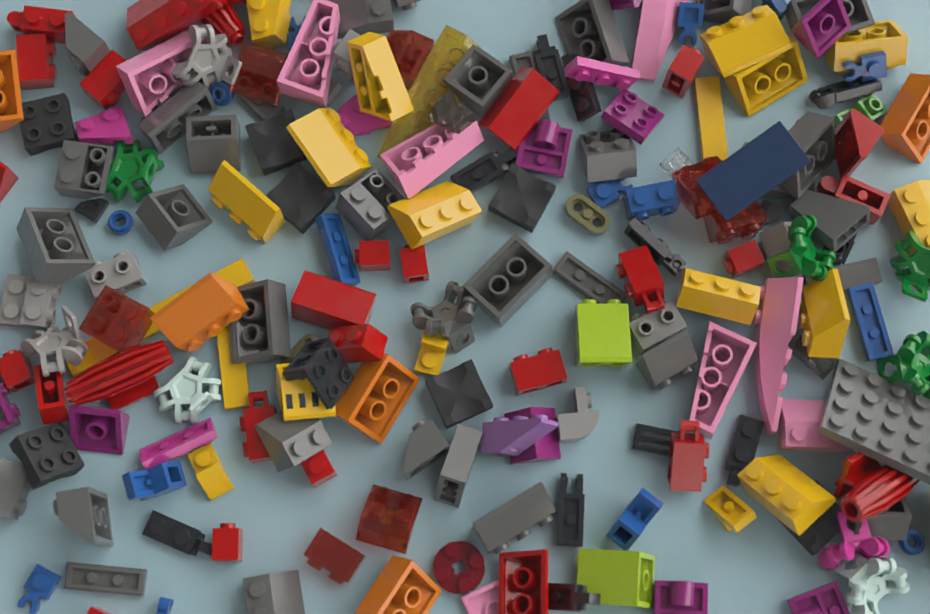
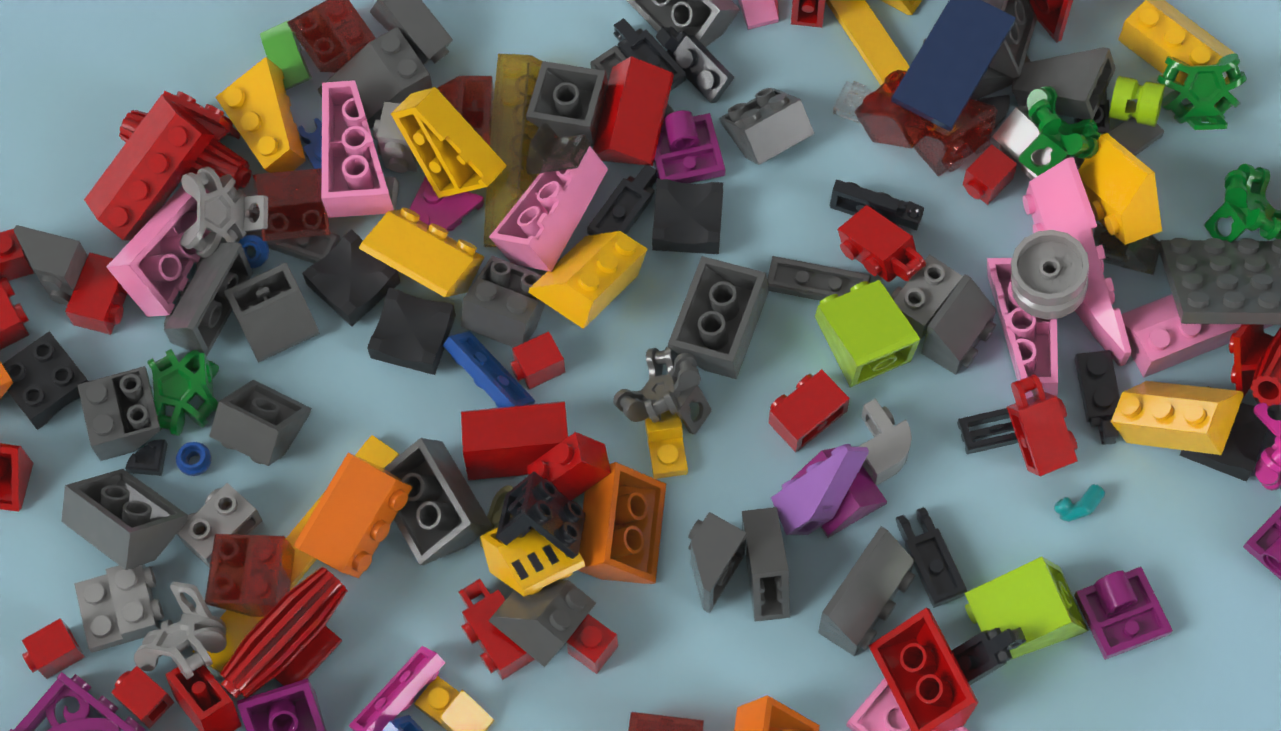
camera: 20 degrees left, 10 degrees down
(105, 127) = (121, 351): dark pink wing -> none
(187, 389) = (378, 621): light aqua piece -> none
(233, 376) = (426, 580): yellow tile -> none
(245, 203) = (347, 363): yellow slope -> none
(388, 519) = (711, 666): clear red slope -> none
(414, 264) = (592, 349): red brick -> none
(459, 394) = (724, 477): black brick -> none
(472, 560) = (840, 672): dark red plate -> none
(589, 213) = (777, 202): olive plate -> none
(601, 73) = (714, 32): dark pink plate -> none
(606, 192) = (786, 169): blue plate -> none
(632, 116) = (774, 67): magenta plate -> none
(634, 519) = (1014, 528): blue brick -> none
(651, 200) = (845, 153): blue brick -> none
(692, 523) = (1084, 507): none -> teal arm
(717, 296) = (980, 224): yellow slope -> none
(729, 509) = (1122, 469): yellow slope -> none
(741, 341) = (1049, 274): none -> light grey wheel
(855, 191) = (1083, 38): red brick -> none
(869, 322) = (1177, 184): blue plate -> none
(872, 252) = (1147, 107): none -> lime wheel

